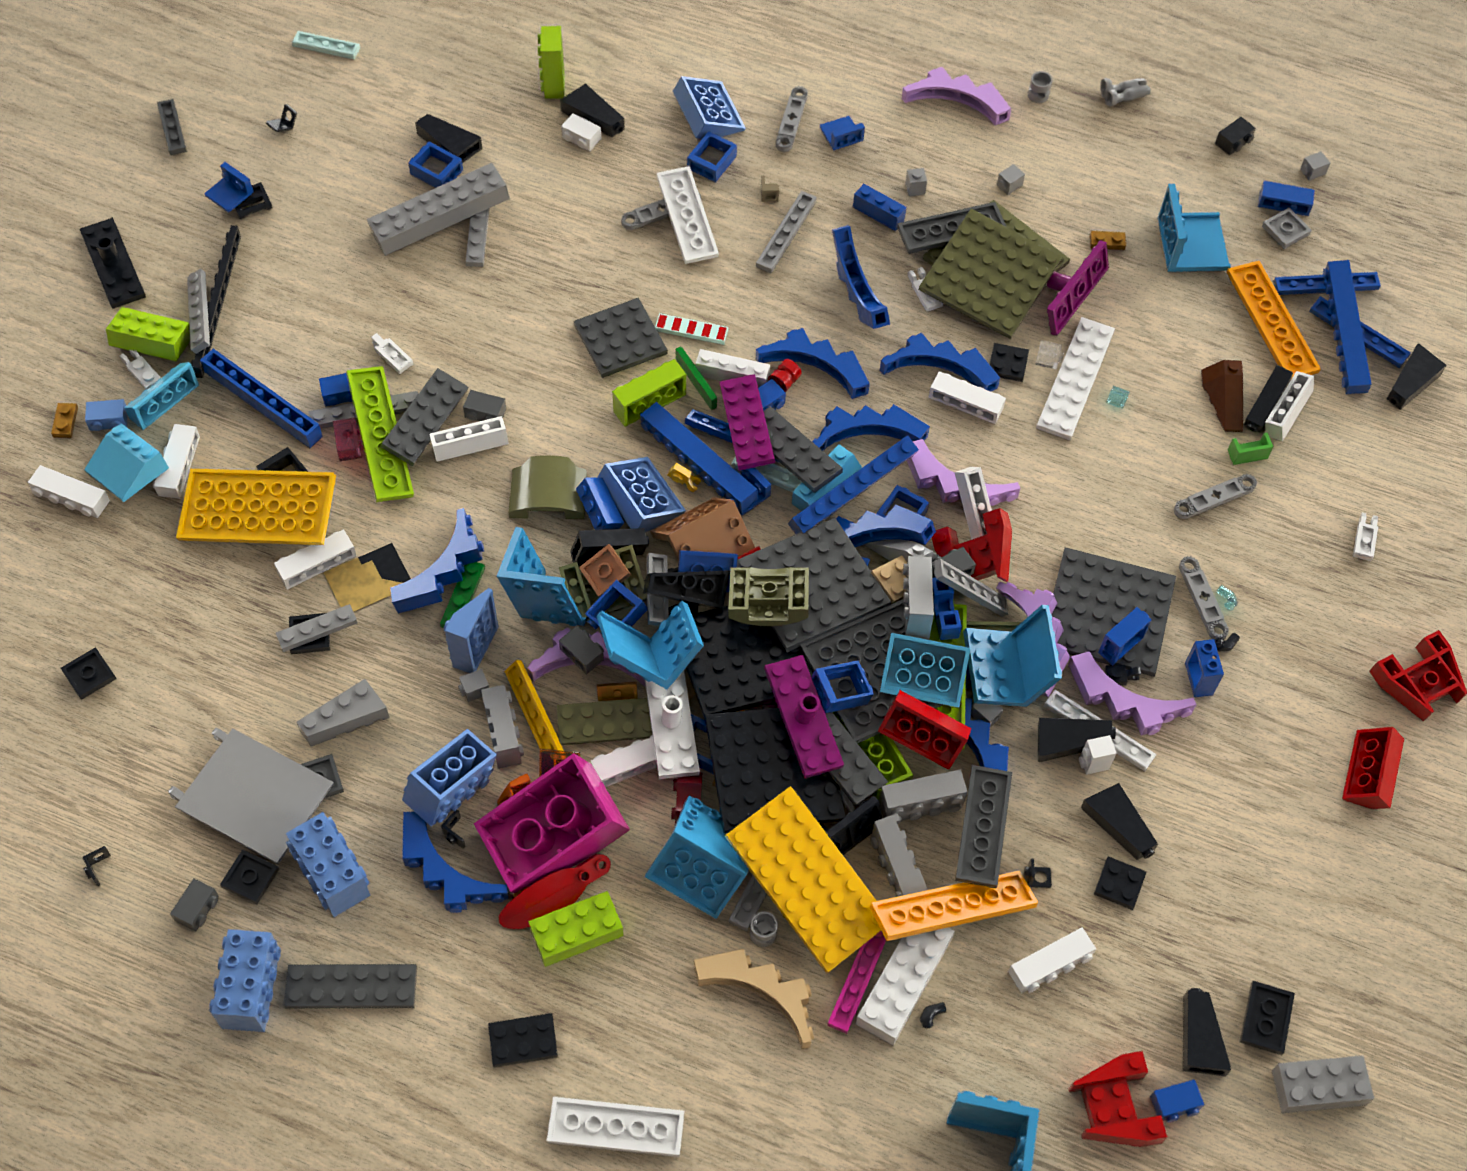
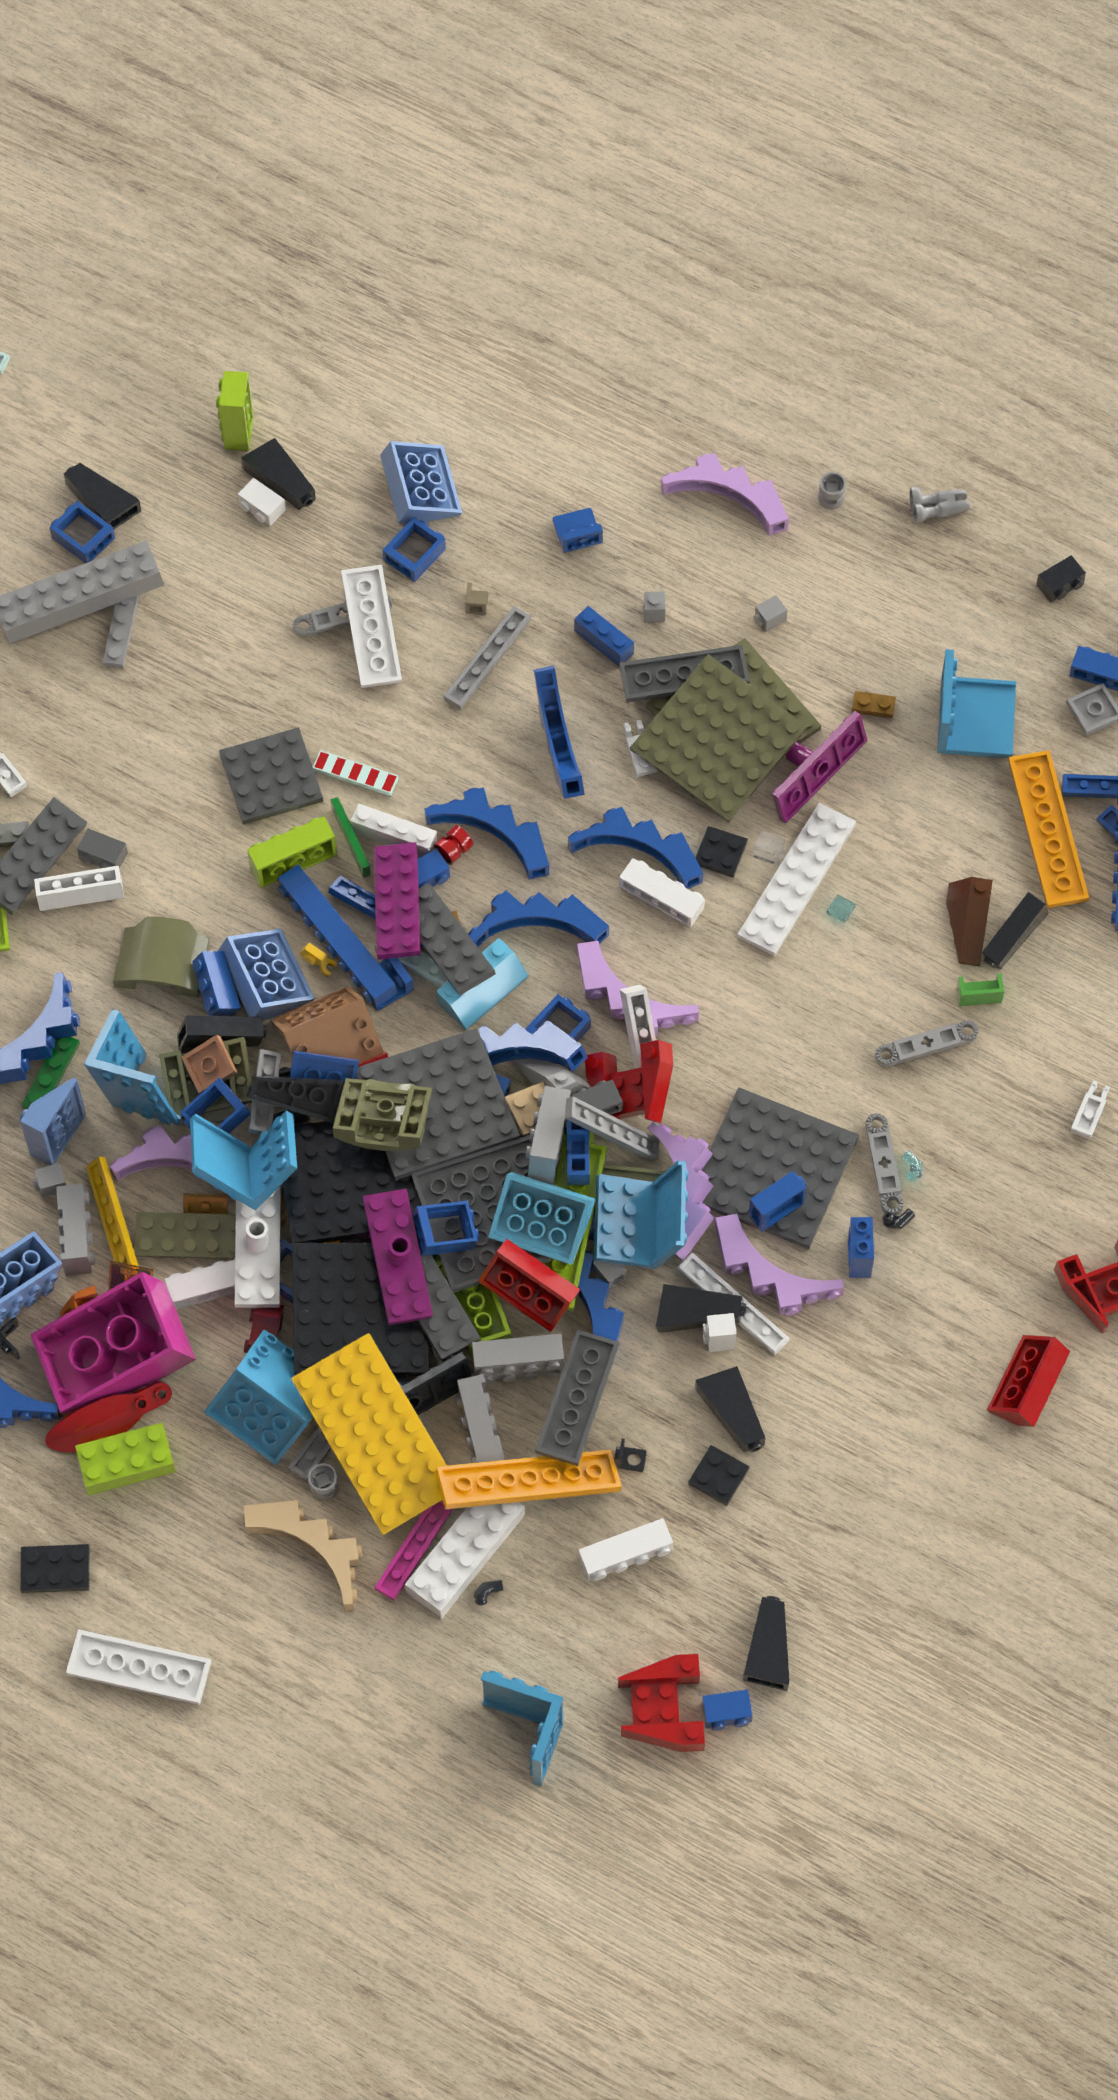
camera: 10 degrees right, 5 degrees up
(581, 649) = (170, 1153): dark grey brick -> none
(789, 127) = (514, 517): light grey piece -> none
(853, 486) = (505, 992): blue brick -> none
(1120, 675) = (767, 1243): black plate -> none
(1267, 1017) = (844, 1635): black plate -> none
(1289, 405) = (1038, 941): white brick -> none
(1322, 1084) = (884, 1710): light grey brick -> none

